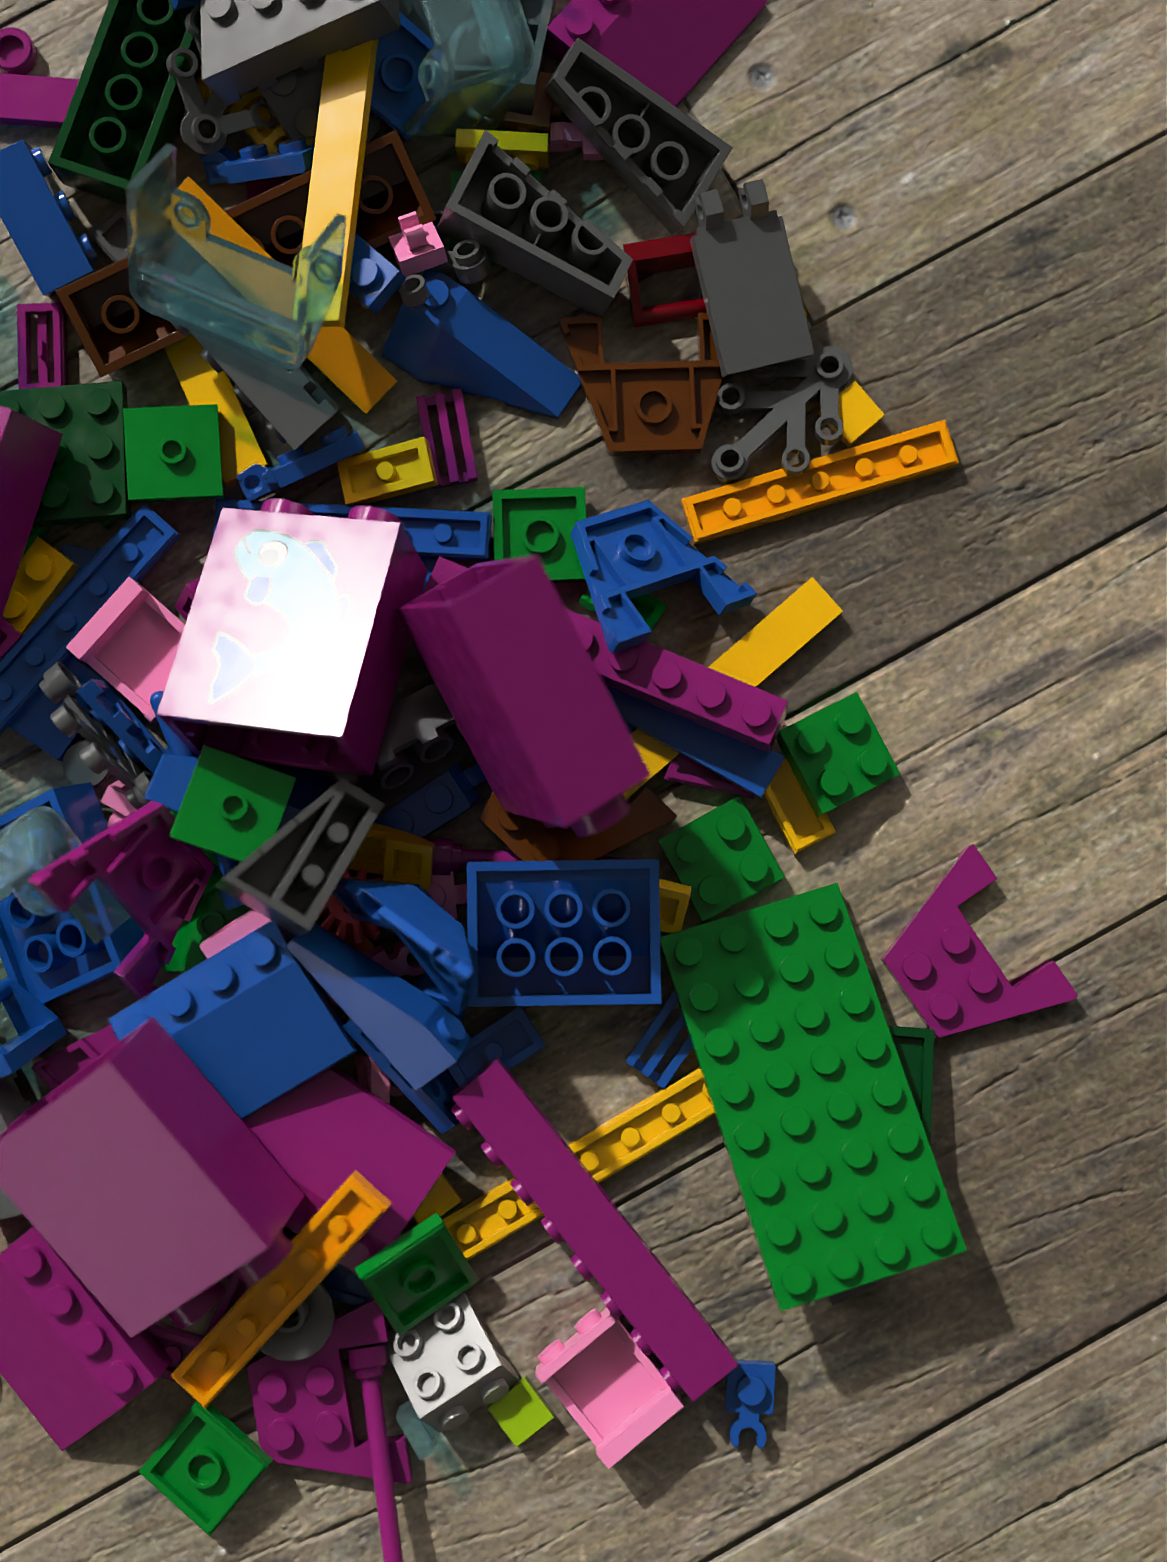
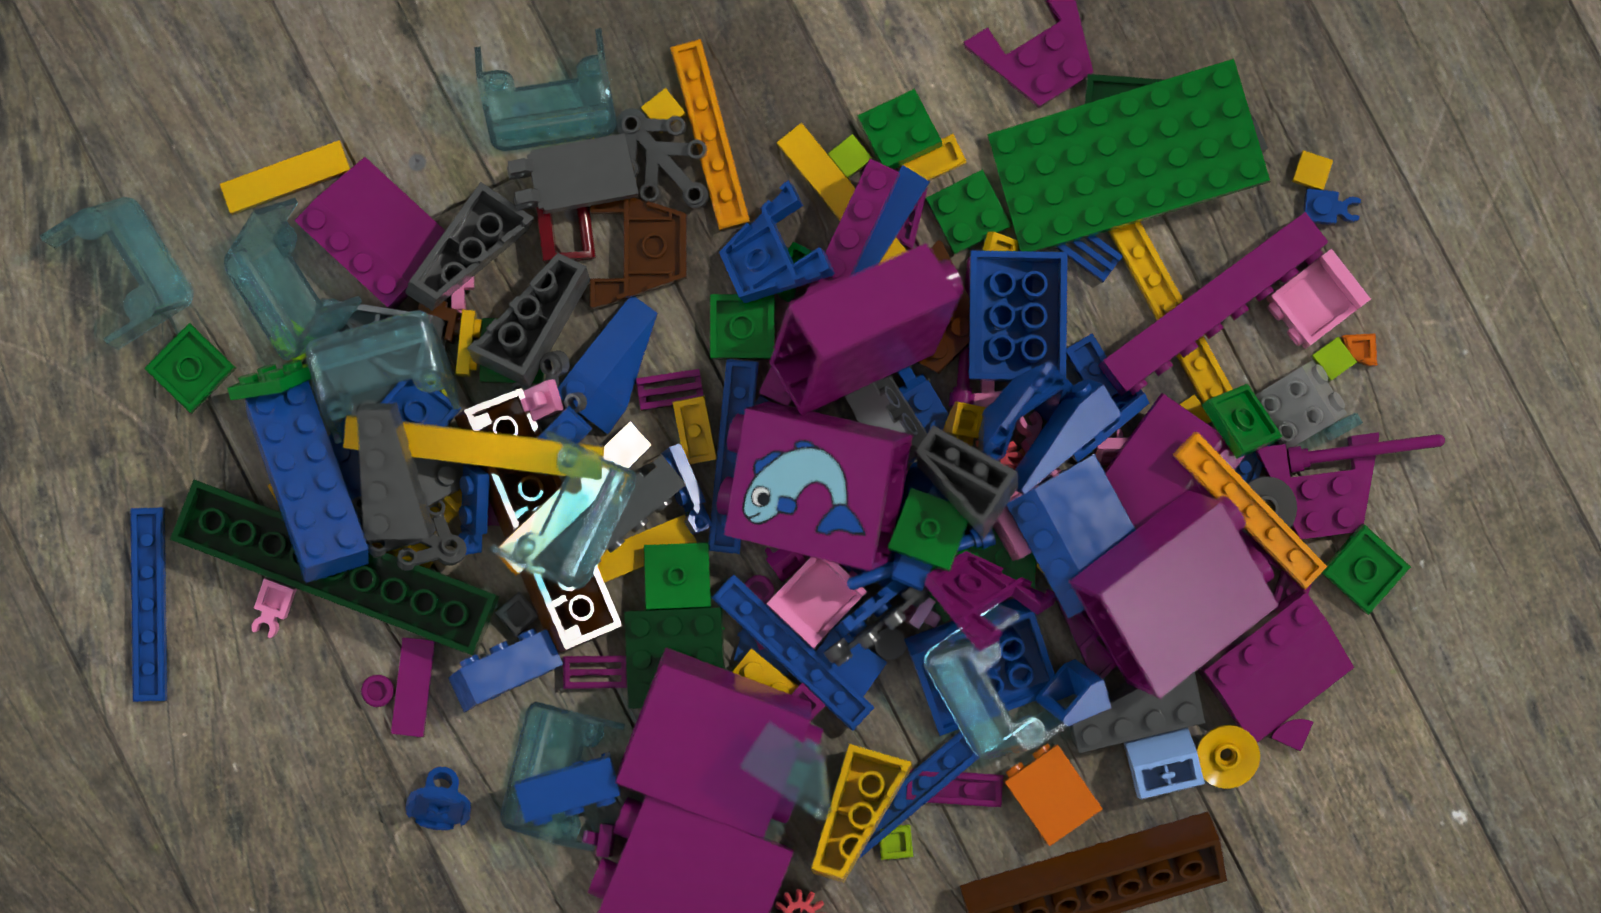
camera: 90 degrees left, 0 degrees up
(165, 577) = (761, 587): none -> magenta tile
(539, 1454) = (1362, 348): none -> orange tile
(796, 682) = (850, 156): none -> lime tile
(803, 1372) = (1312, 170): none -> yellow tile
(841, 242) = (550, 110): none -> clear light blue windscreen

